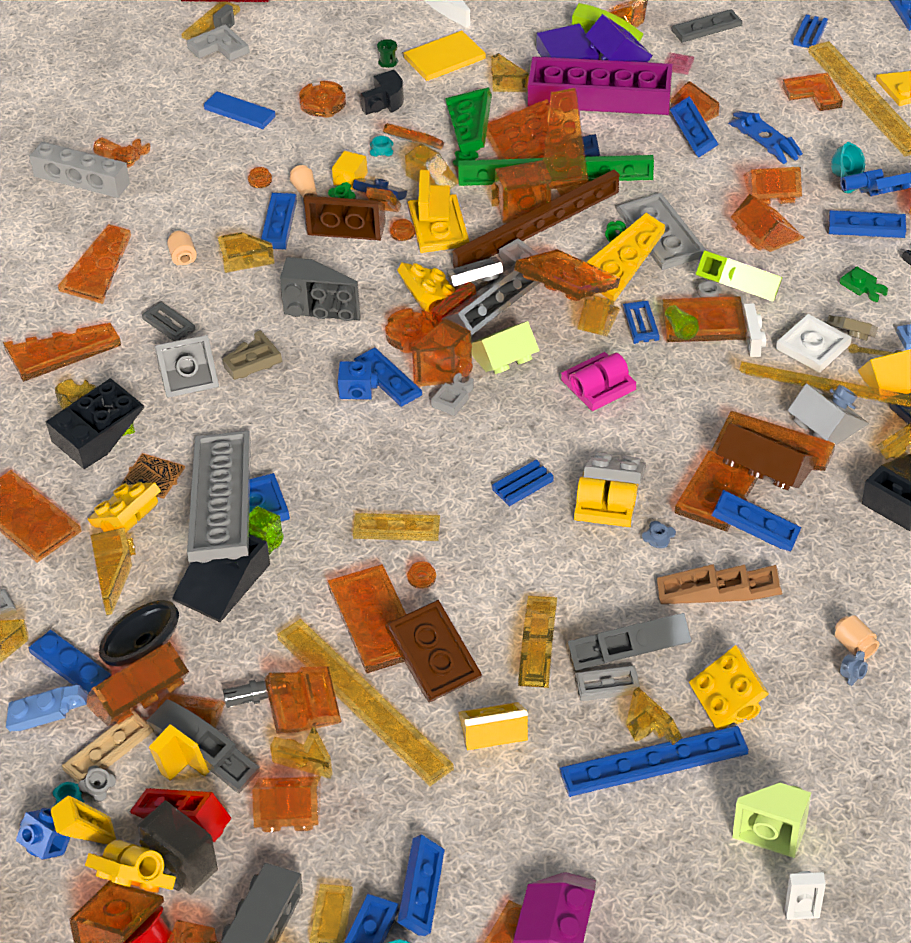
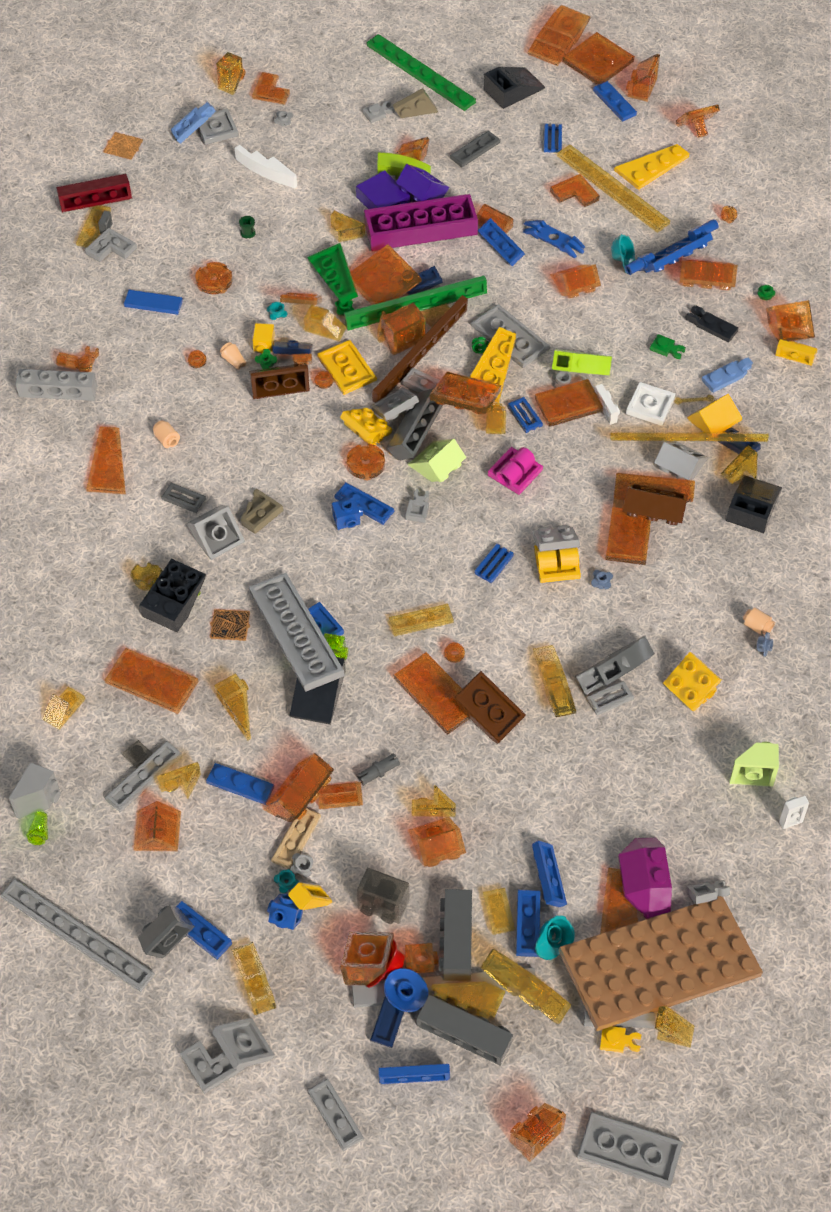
camera: 20 degrees left, 10 degrees up
(44, 707) = (240, 822): medium blue hinge -> none
(49, 354) = (105, 548): clear orange wing -> none
(125, 507) = (224, 656): yellow plate -> none
(131, 865) = (360, 918): yellow plate -> none
(139, 633) = (283, 749): black dish -> none
(175, 751) = (353, 825): yellow panel -> none
(197, 805) = (354, 867): red slope -> none
(217, 749) = (362, 816): dark grey slope -> none
(244, 251) = (215, 426): clear yellow slope -> none
(279, 219) = (228, 393): blue plate -> none
(302, 699) = (415, 766): clear orange slope -> none
(318, 291) = (290, 448): dark grey slope -> none
(368, 704) = (454, 755): clear yellow tile -> none
(386, 93) = (261, 262): black brick -> none
(433, 199) = (337, 349): yellow panel -> none
(442, 355) = (403, 478): clear orange slope -> none
(444, 55) = (289, 218): yellow tile -> none
(453, 301) = (390, 431): clear orange tile -> none
(494, 725) = (549, 748): yellow slope -> none
(564, 141) = (420, 281): clear orange wing -> none
(648, 717) = (648, 715): clear yellow slope -> none
(653, 761) = (660, 745): blue tile -> none
(681, 63) = (468, 187): clear pink tile -> none
(683, 324) = (558, 411): clear neon green cone -> none
(726, 585) = (656, 607): medium nougat slope -> none
(756, 521) = (663, 553): blue tile -> none
(764, 225) = (583, 315): clear orange slope -> none
(843, 397) = (691, 445): sand blue plate -> none
(856, 328) = (678, 386): dark tan wing -> none
(867, 224) = (652, 297): blue plate -> none

